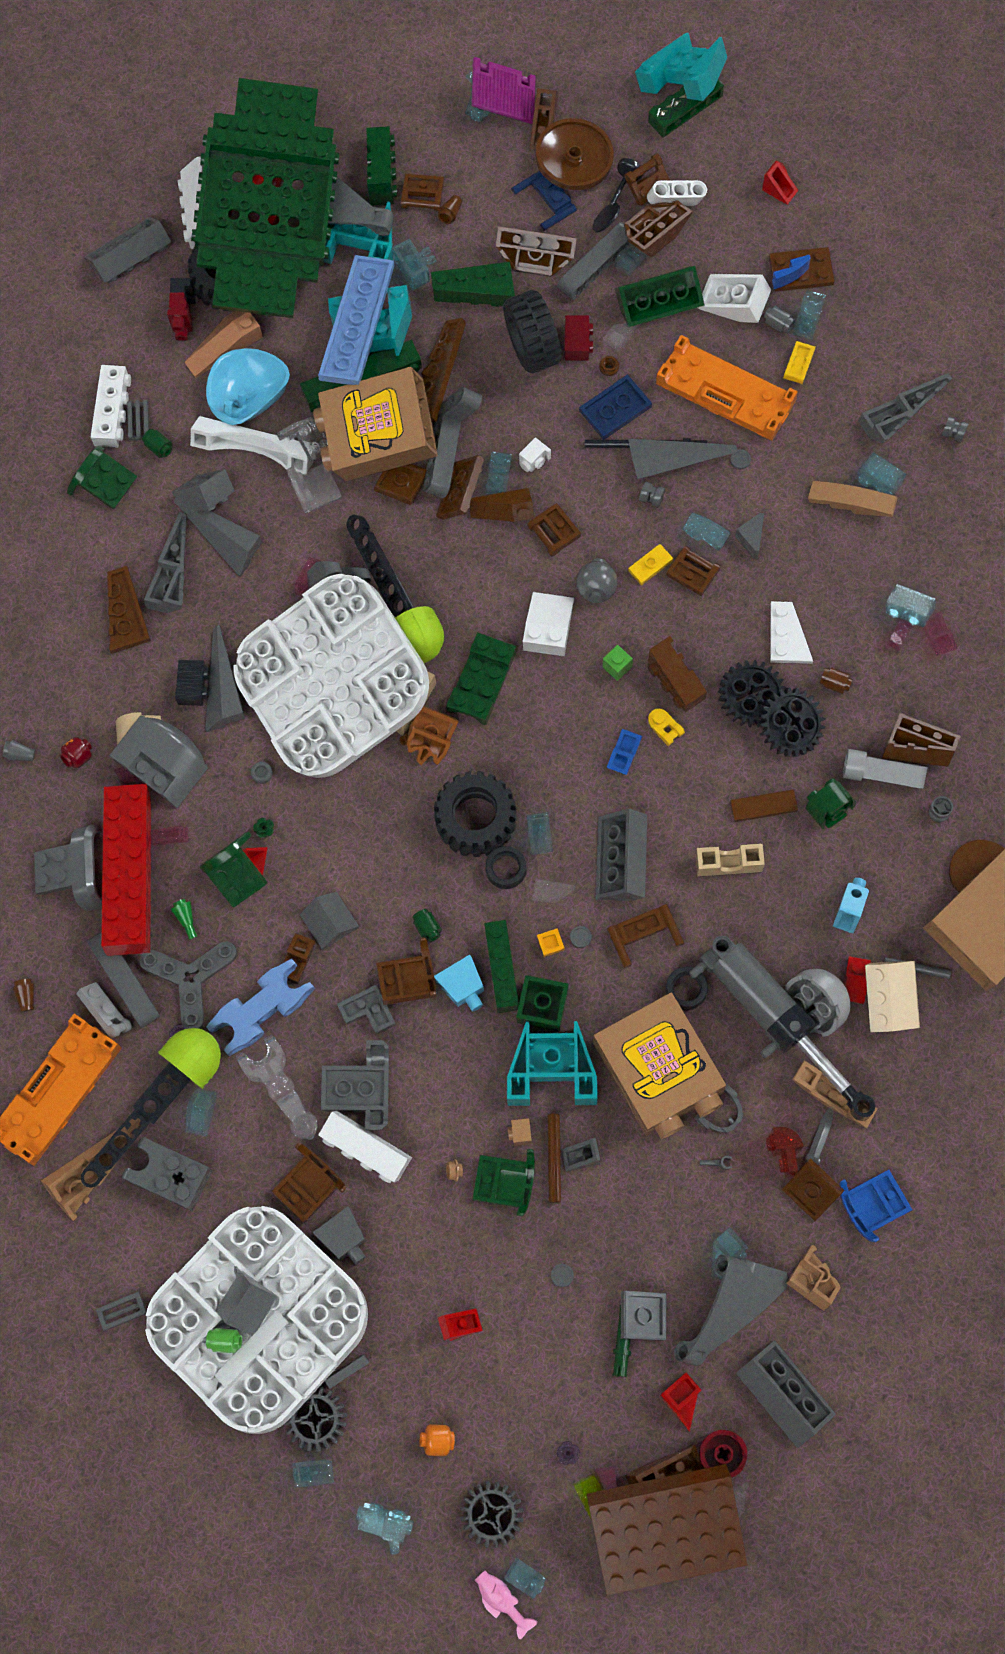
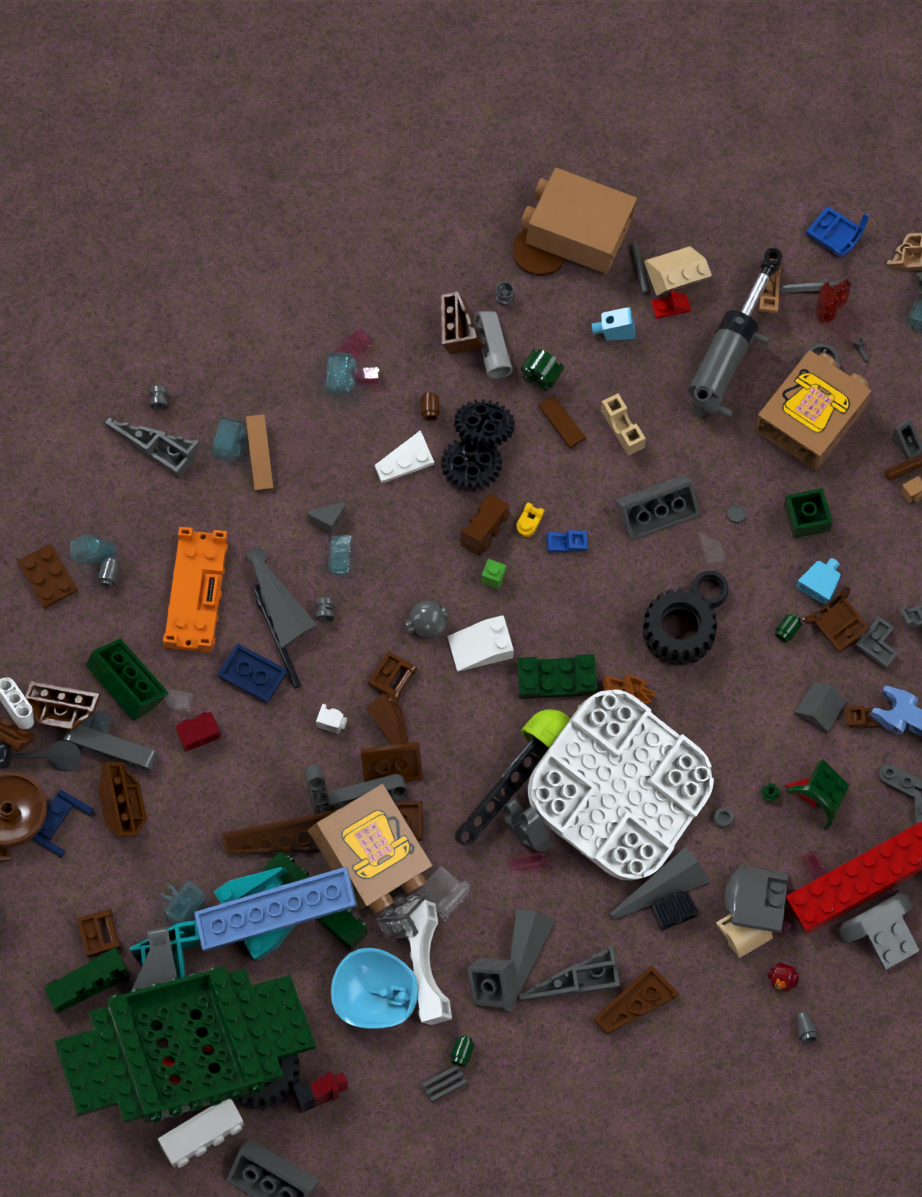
camera: 120 degrees left, 5 degrees down
(102, 478) = (518, 1082): dark green piece -> none
(109, 406) = (444, 1112): white brick -> none
(183, 912) = (873, 822): green cone -> none
(232, 333) = (336, 1045): nougat wedge -> none
(450, 210) = (108, 899): reddish brown cone -> none
(475, 285) = (179, 836): dark green wedge -> none
(498, 473) = (351, 745): clear light blue slope -> none
(501, 966) = (793, 556): dark green brick -> none
(532, 331) = (220, 757): black tyre -> none
(539, 833) = (668, 575): clear light blue slope -> none
(550, 942) = (754, 531): light orange plate -> none
(551, 1059) = (850, 490): teal wedge -> none
(609, 360) = (213, 690): reddish brown plate -> none
(642, 927) = (708, 470): reddish brown plate -> none
(650, 564) = (389, 587): yellow plate -> none
(684, 971) = (736, 431): black tyre -> none
(691, 576) = (386, 551): reddish brown plate -> none
(736, 296) = (100, 617): white slope -> none
(796, 269) = (58, 572): blue slope -> none
(799, 362) = (144, 542): yellow plate -> none
(813, 1189) = (850, 268): reddish brown plate -> none
(827, 995) = (700, 314): light grey cylinder -> none

